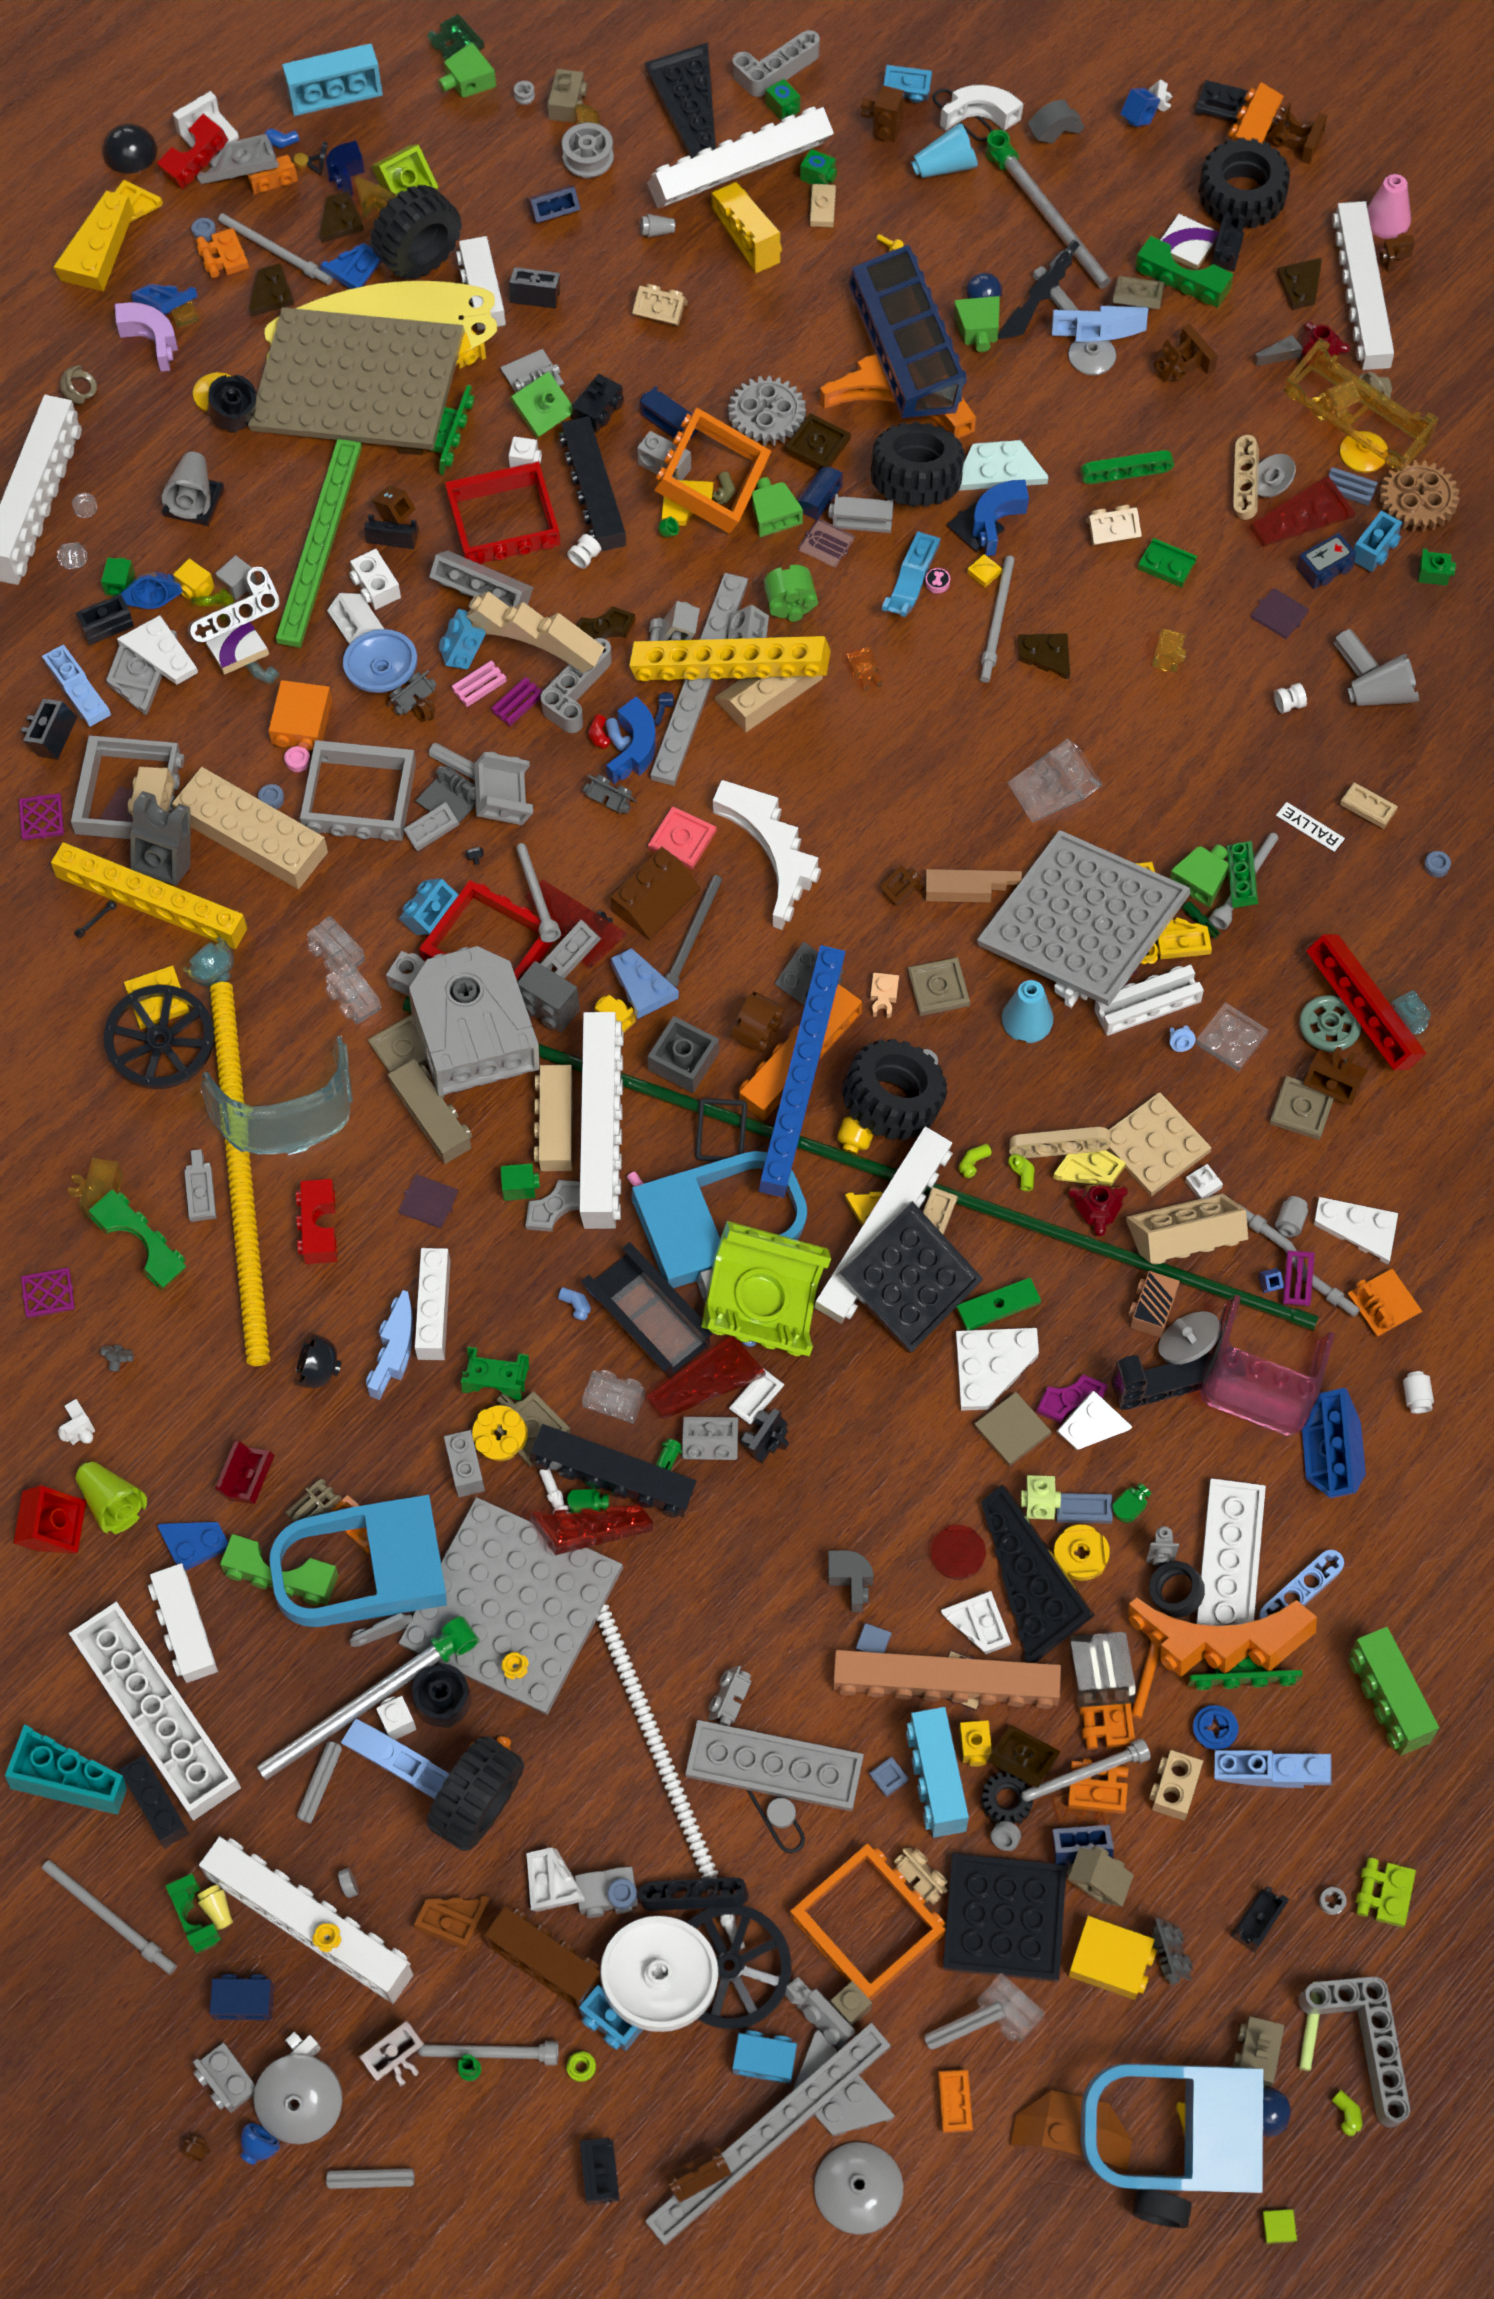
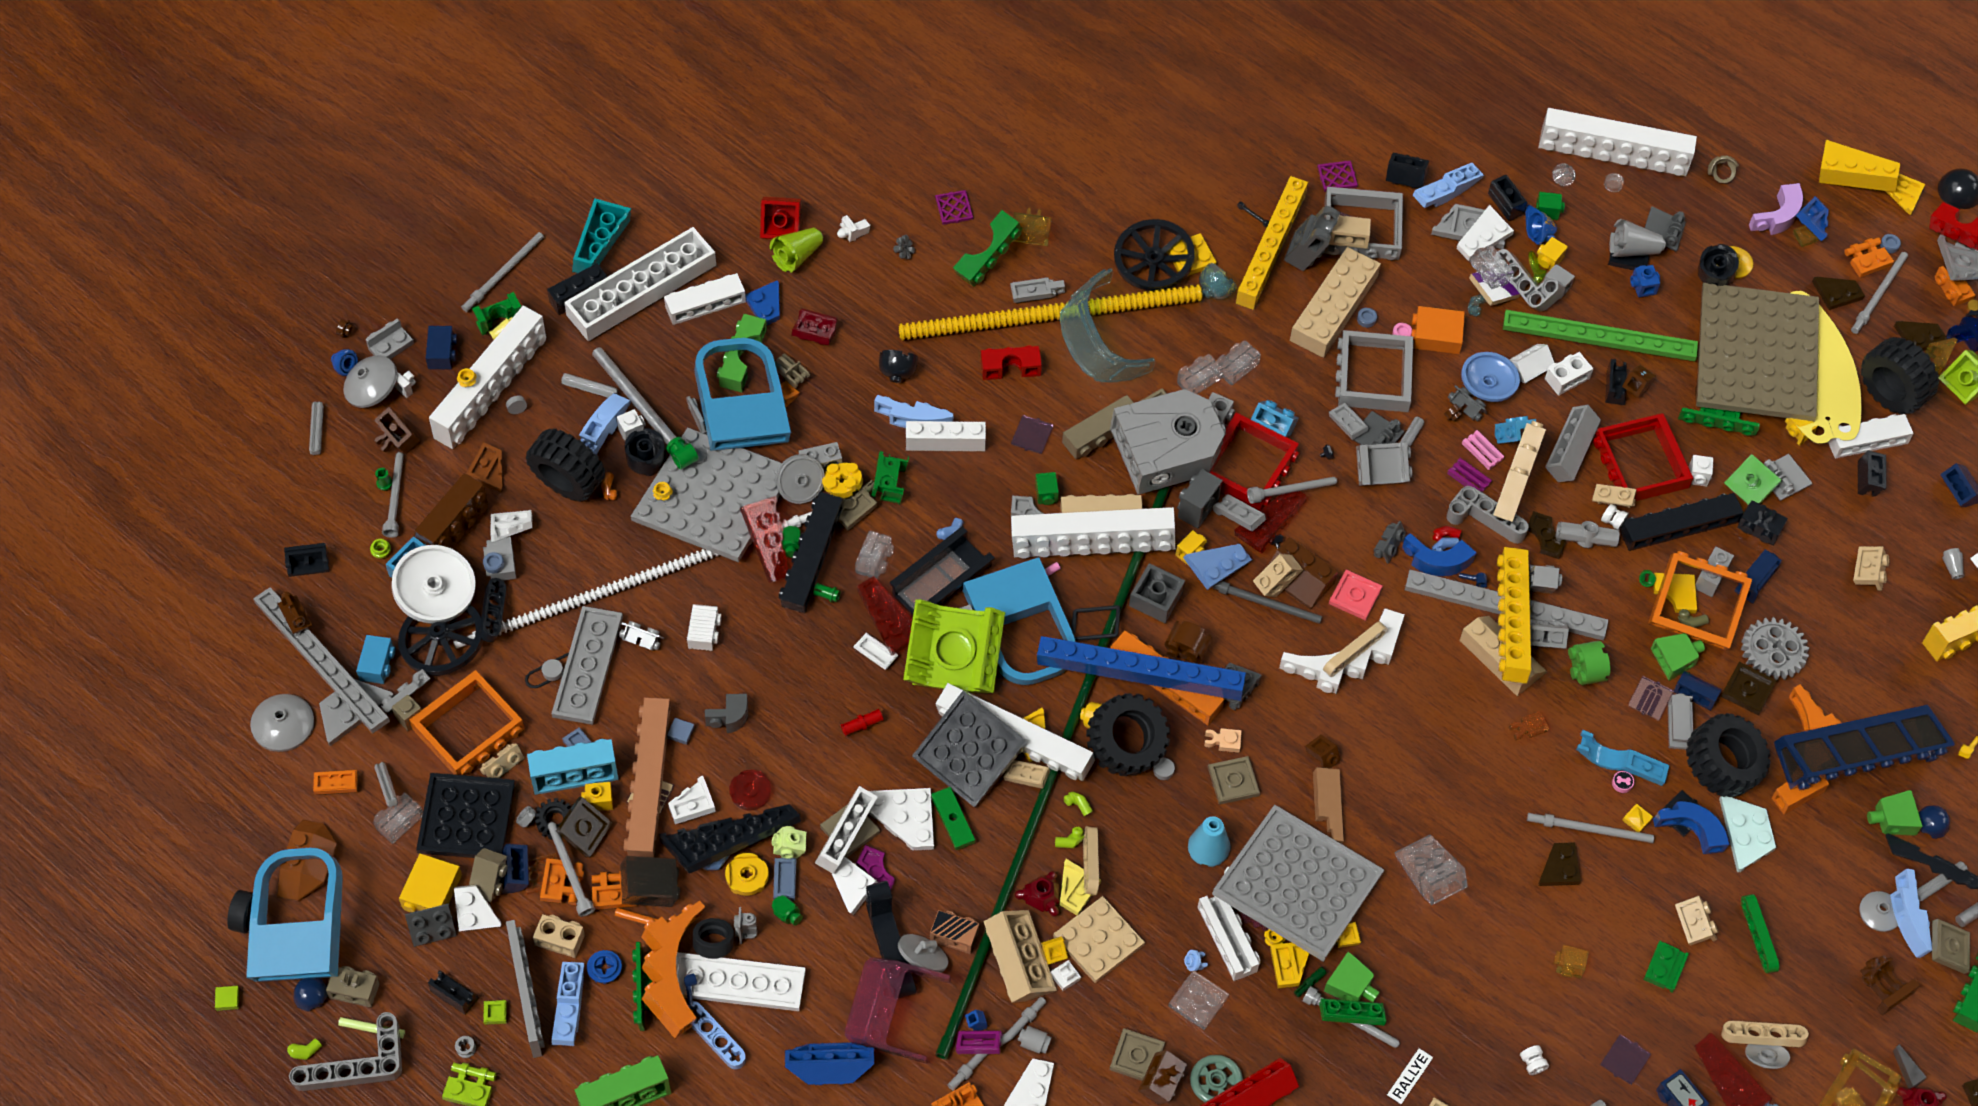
camera: 85 degrees right, 5 degrees down
(161, 454) = (1666, 225): none -> dark grey hinge
(216, 643) = (1491, 267): none -> clear brick
(244, 483) = (1645, 280): none -> blue brick
(353, 267) = (1864, 340): blue wing -> none
(498, 1486) = (799, 479): none -> light grey shield
(558, 545) = (1614, 495): none -> tan hinge
(609, 580) = (1587, 534): none -> light grey piece
(665, 913) = (1278, 575): none -> tan brick
(710, 1438) = (842, 619): light grey bracket -> none
(720, 1613) = (702, 627): none -> white brick
(769, 1437) = (842, 657): black hips -> none
(775, 832) = (1355, 649): none -> tan beam
(862, 1413) = (862, 722): none -> red pin
(1028, 1424) = (846, 829): none -> white brick
(1145, 1896) = (473, 909): none -> white wing
(1175, 1190) = (1054, 950): none -> yellow tile
(1238, 1615) = (690, 980): none -> dark blue hand
(1251, 1822) = (525, 988): none -> light grey plate
(1282, 1865) = (495, 1012): none -> lime tile

